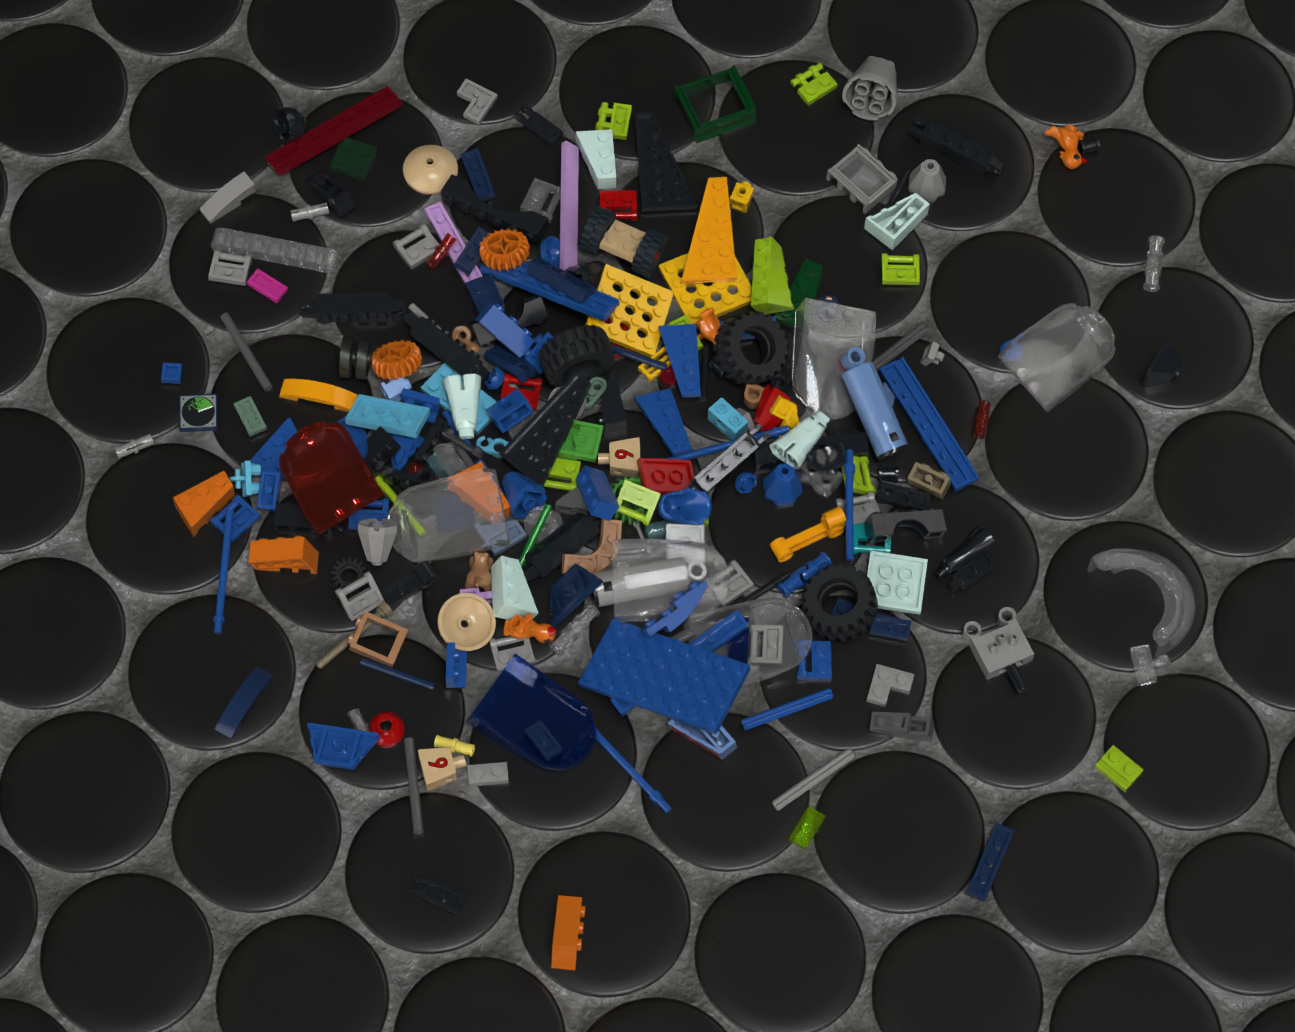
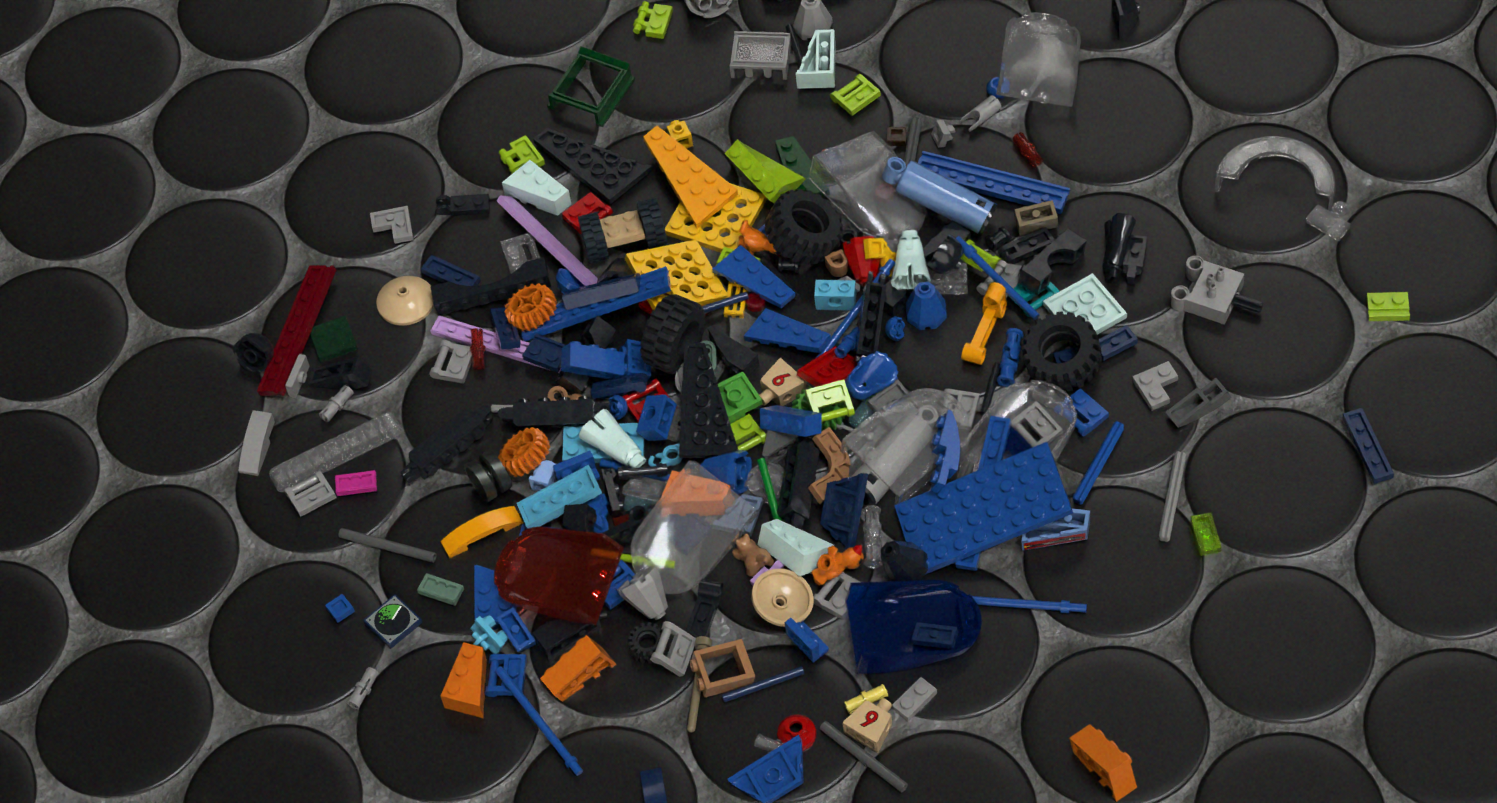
camera: 30 degrees left, 10 degrees down
(301, 168) = (297, 376): none -> light grey plate
(573, 667) = (904, 561): none -> black cone
(697, 466) = (848, 343): none -> blue pin
(898, 328) = (896, 136): none -> dark brown tile
(978, 361) = (983, 111): none -> light grey piece

